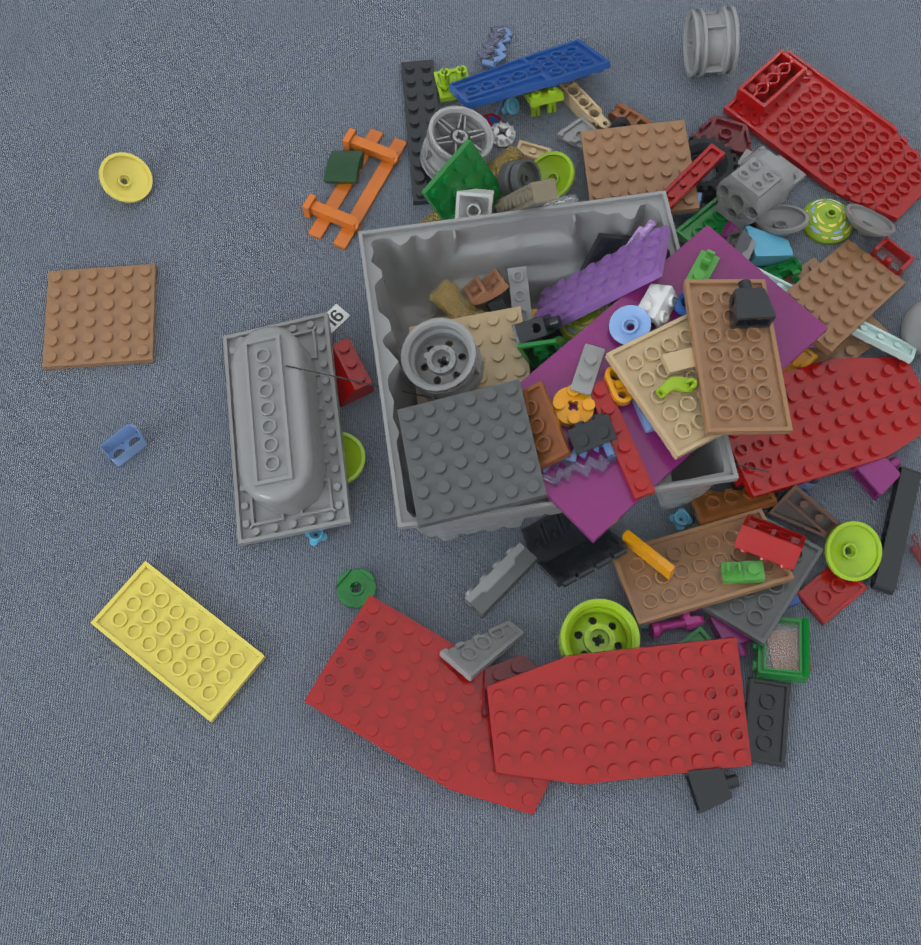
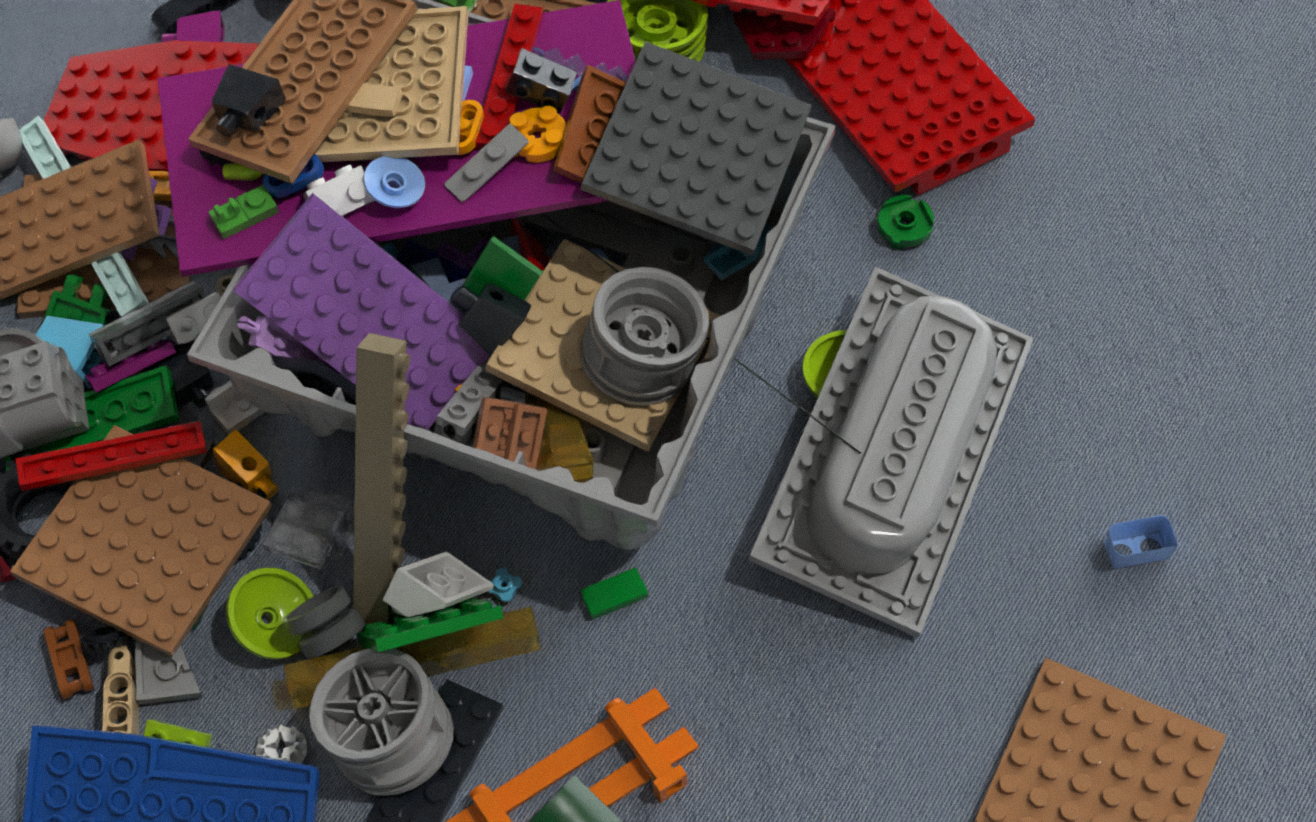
camera: 150 degrees left, 10 degrees down
(178, 641) = (1163, 273): light yellow plate -> none
(337, 317) = (736, 587): white sticker -> none
(350, 366) = (761, 472): red slope -> none
(482, 650) = (804, 71): light grey wing -> none
(531, 150) = (260, 685): tan plate -> none
(676, 384) = (405, 72): lime arm -> none

